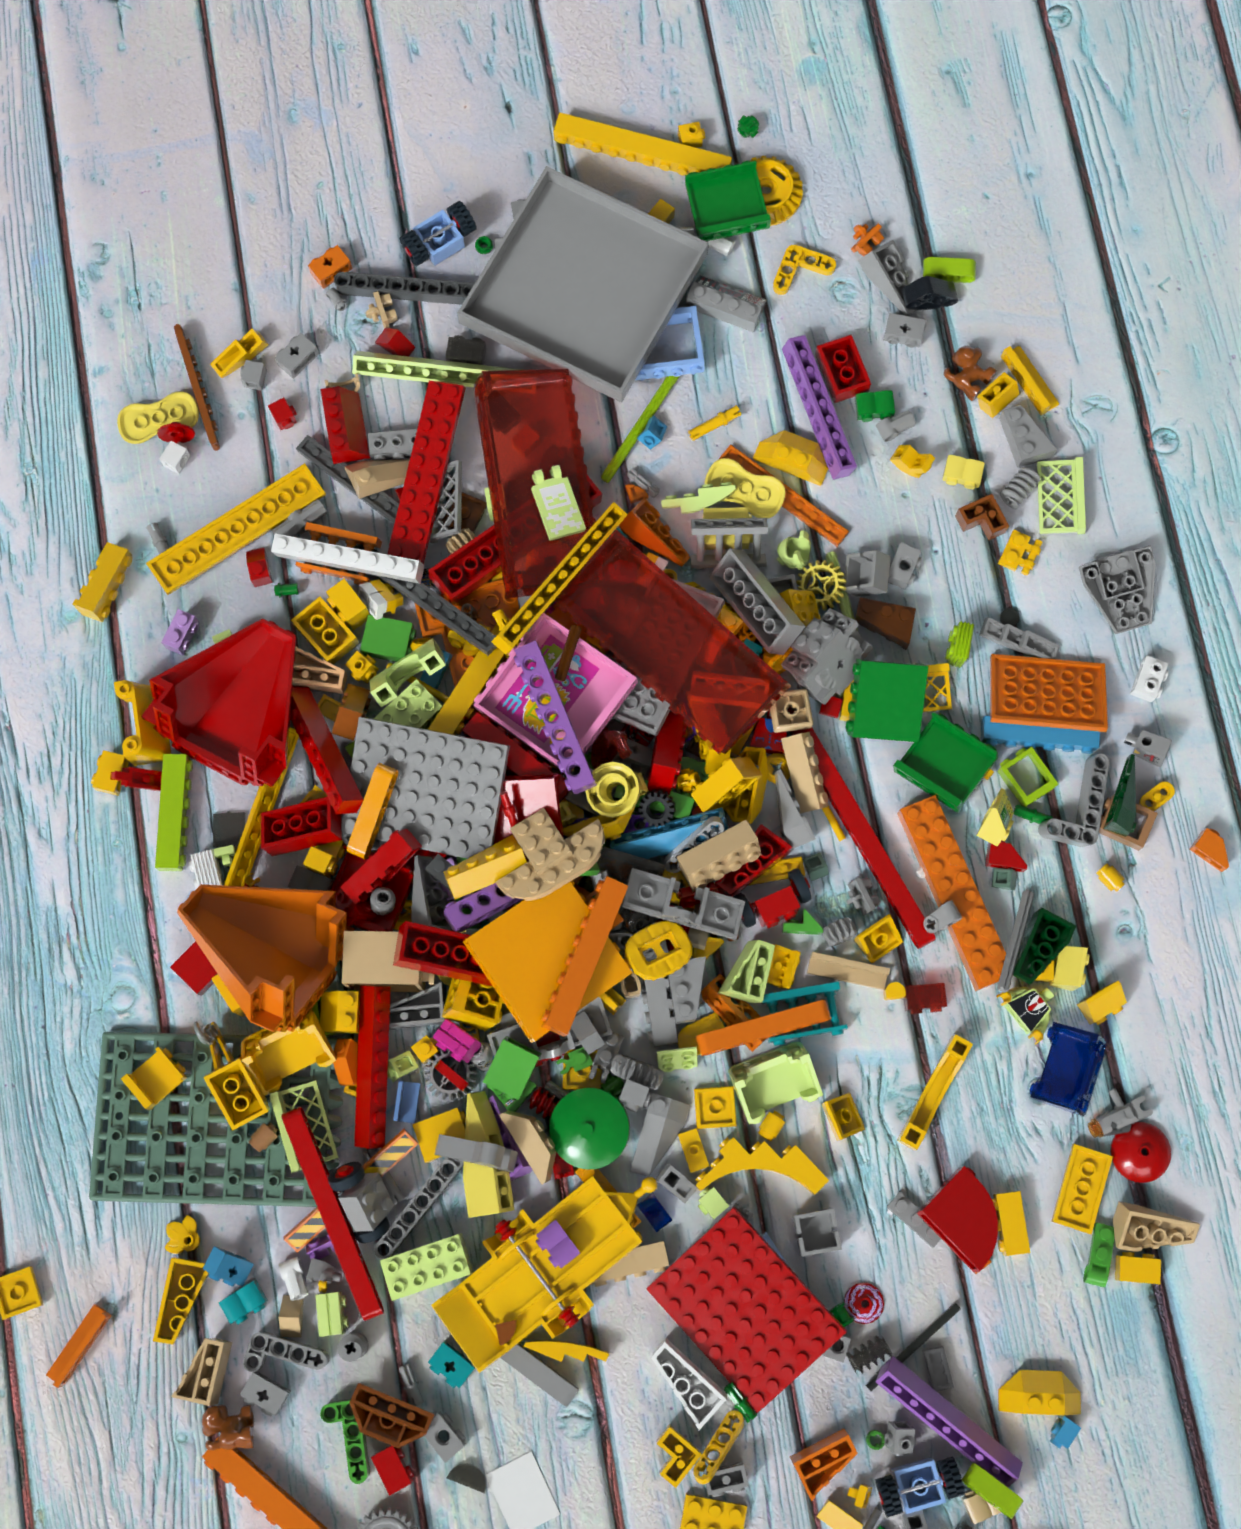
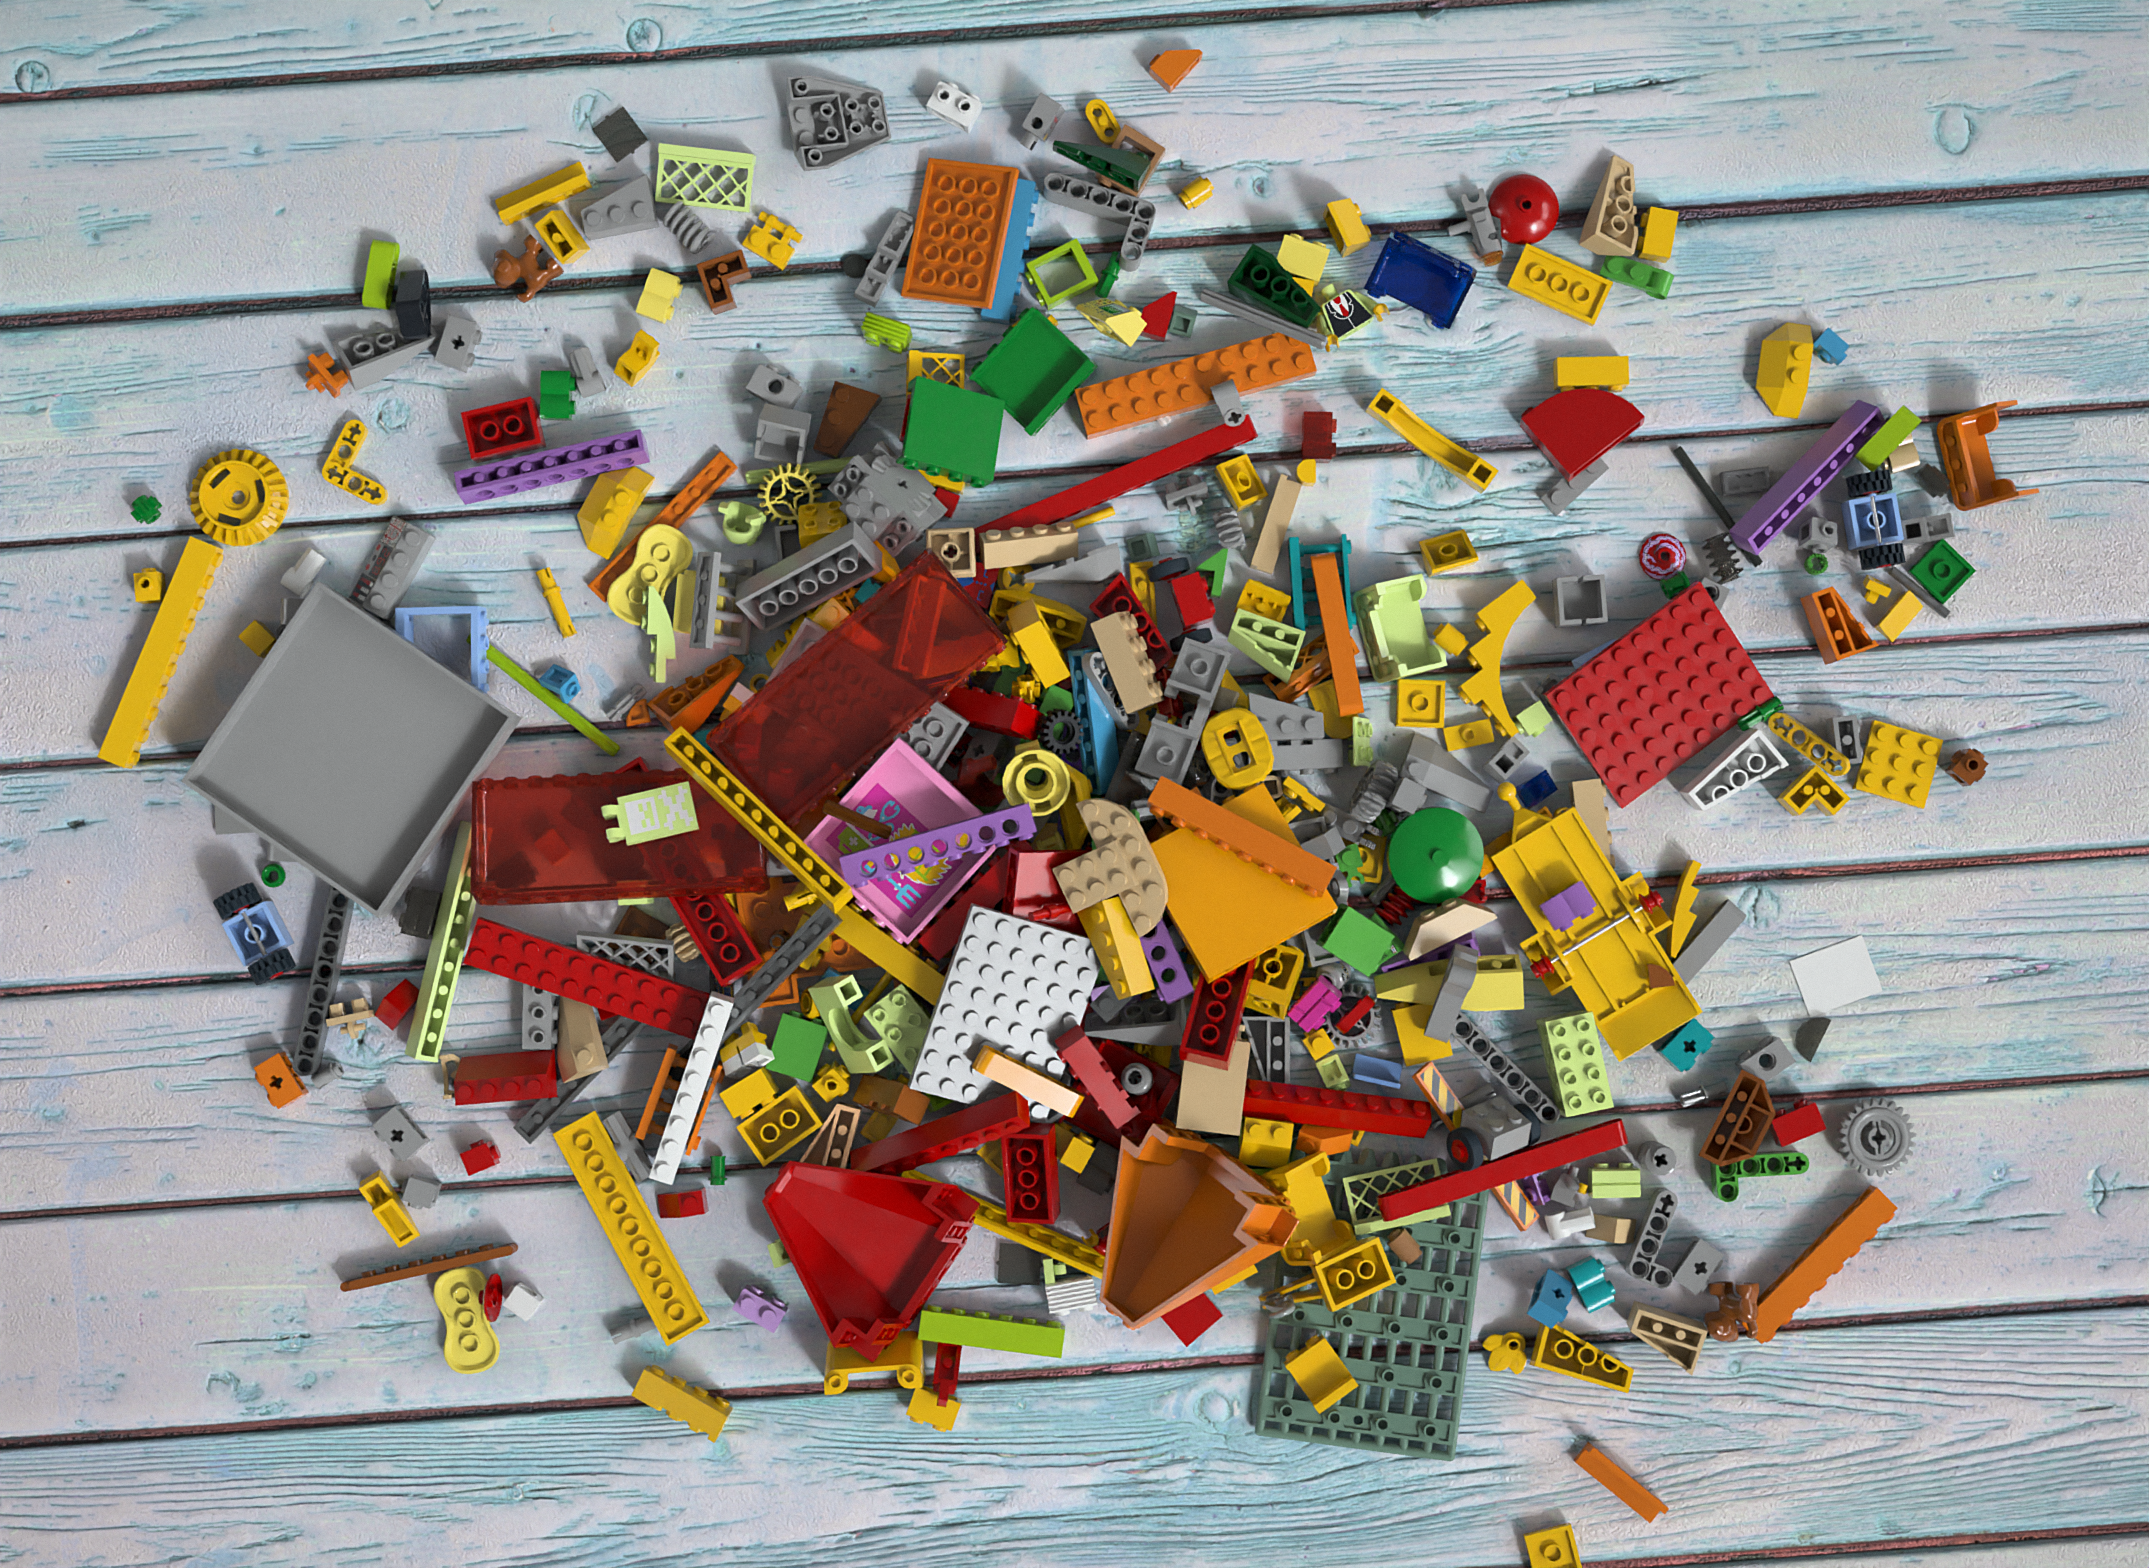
camera: 85 degrees left, 10 degrees up
(631, 1007) = (1295, 790): none -> yellow plate
(727, 201) = (254, 550): green panel -> none
(1085, 431) = (620, 134): none -> clear smoke piece

